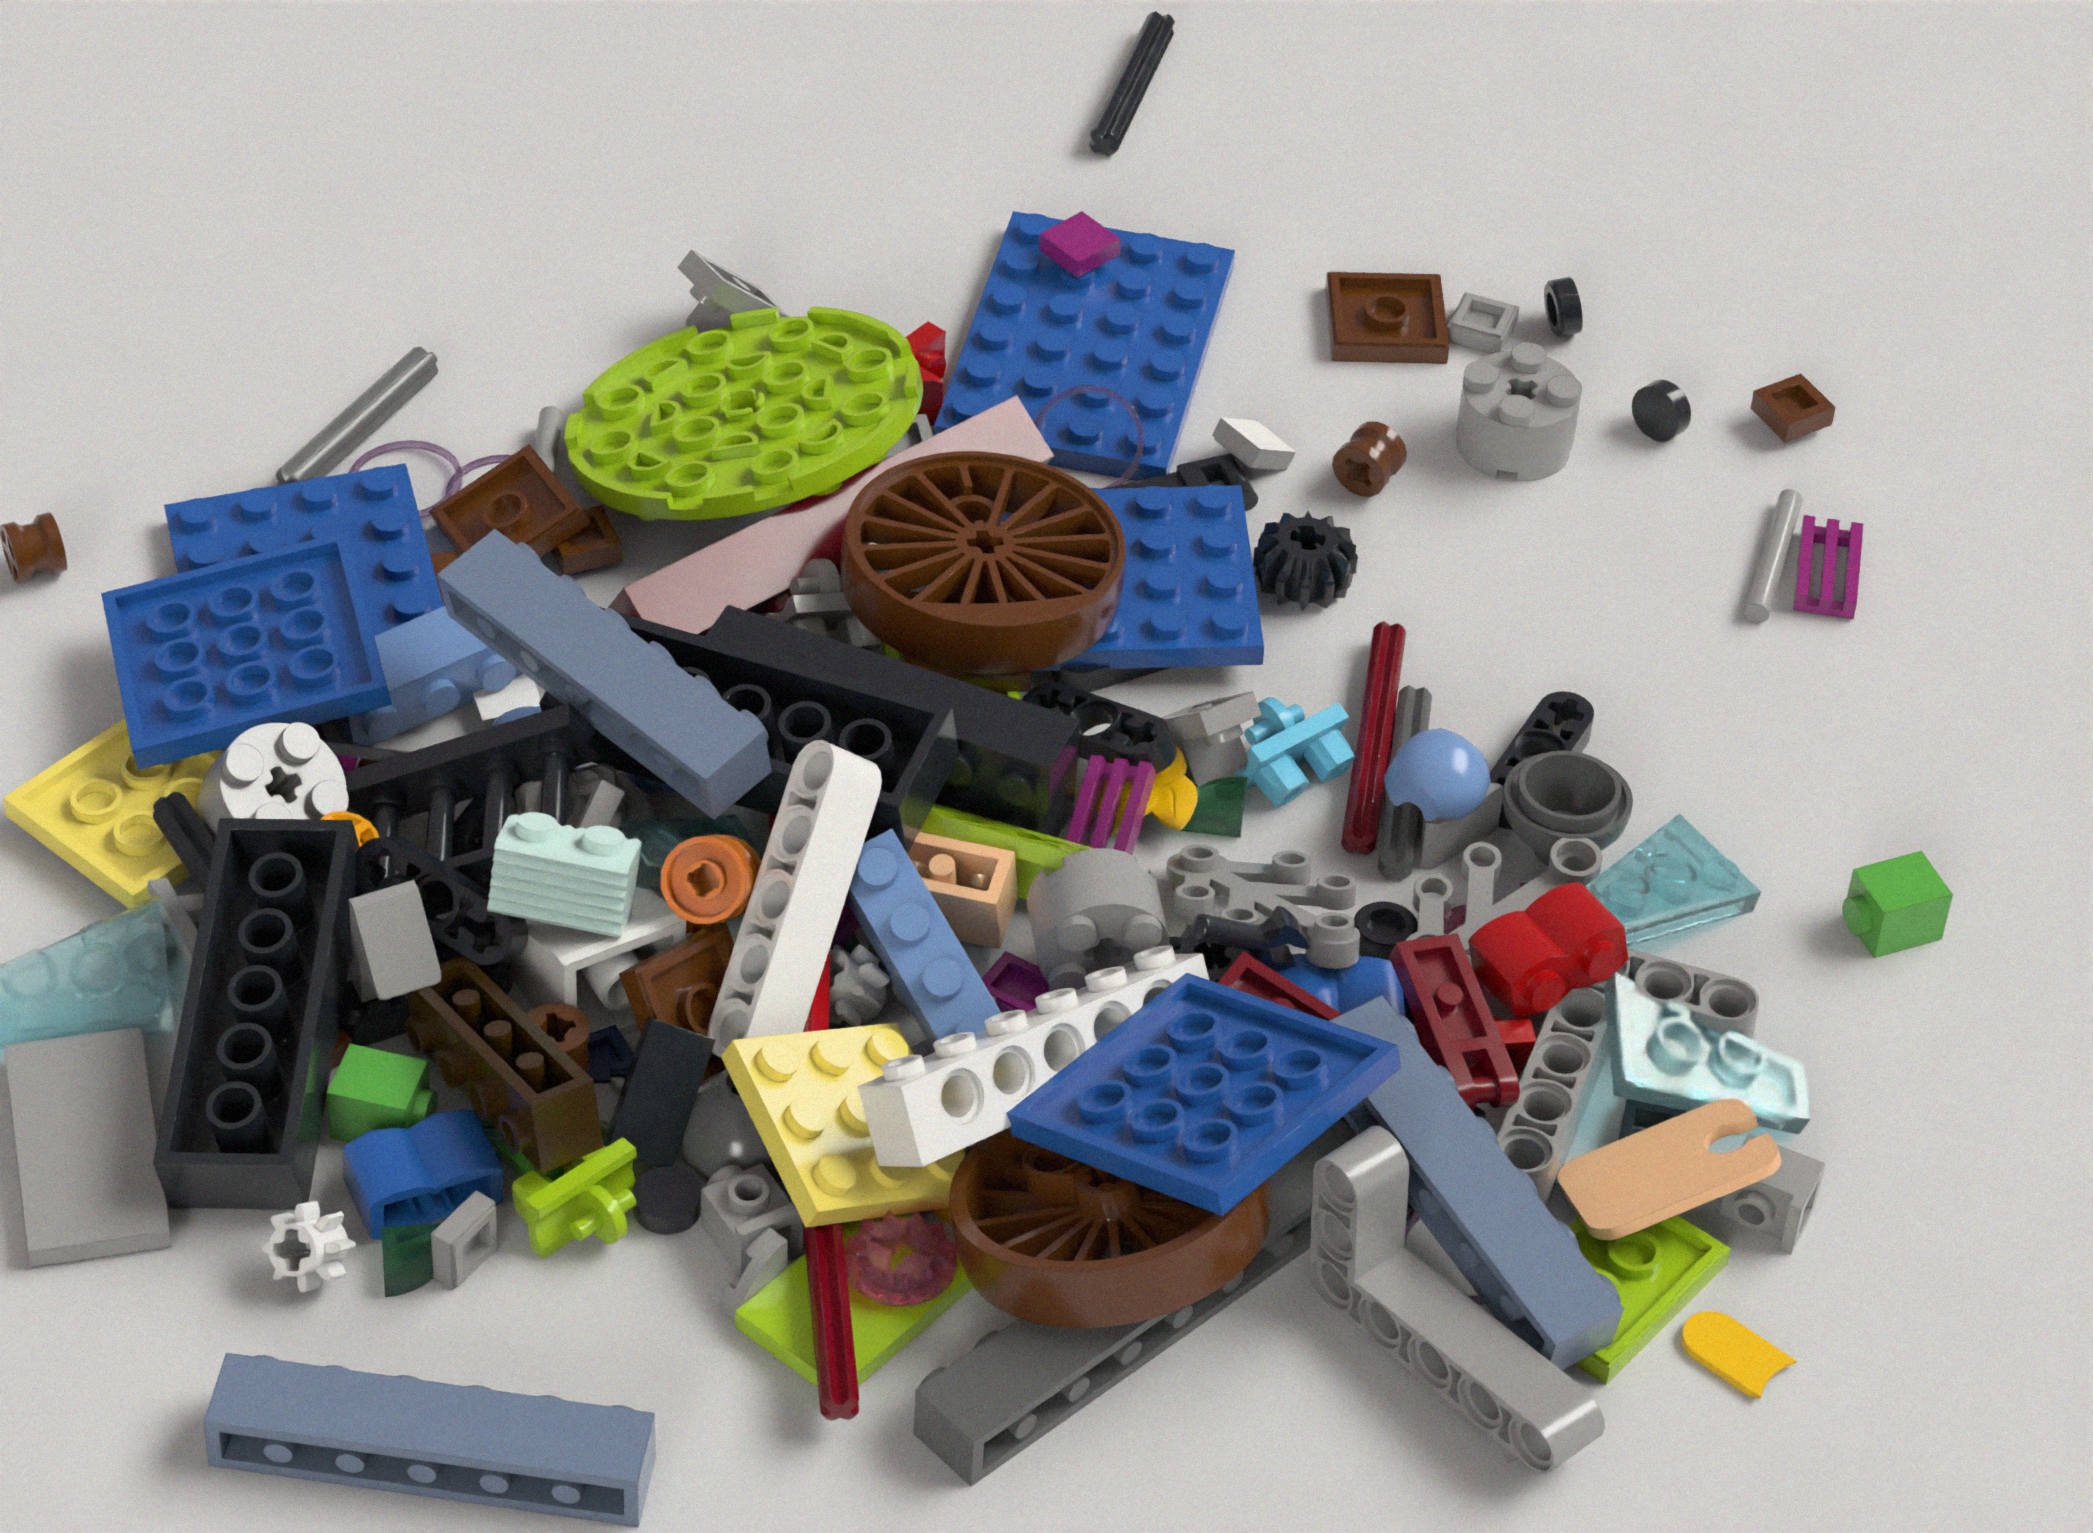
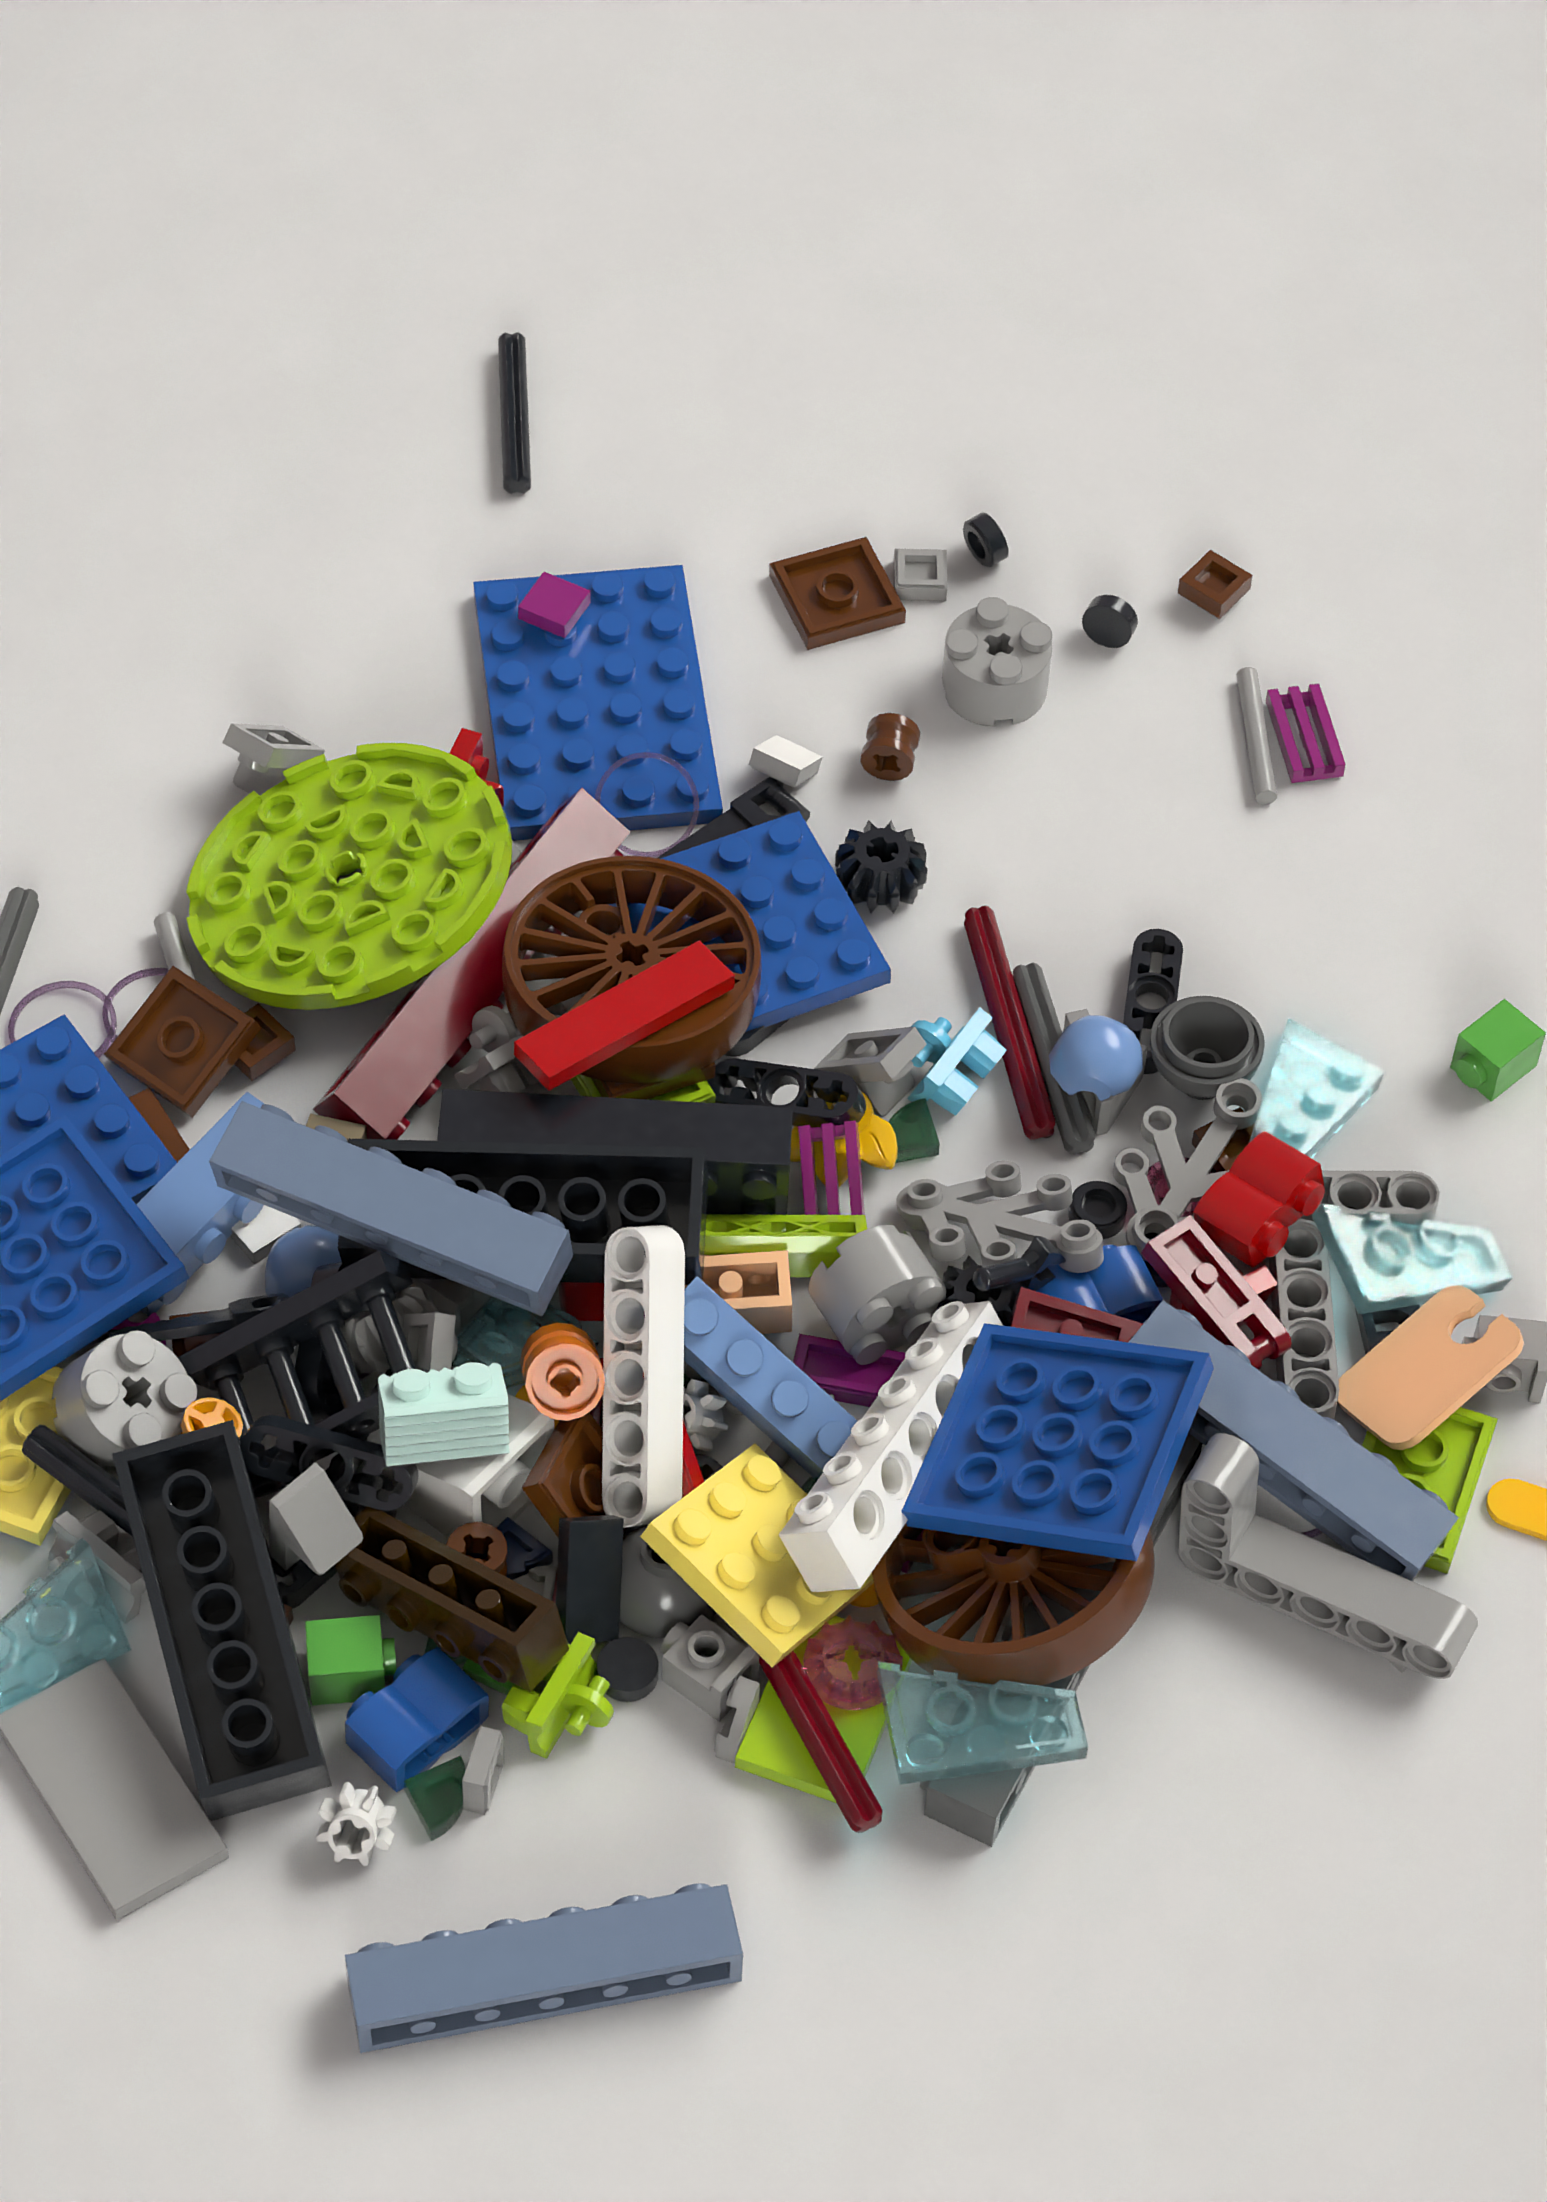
camera: 20 degrees left, 10 degrees up
(941, 584) = (623, 1015): none -> red tile
(977, 1341) = (971, 1728): none -> clear light blue wing

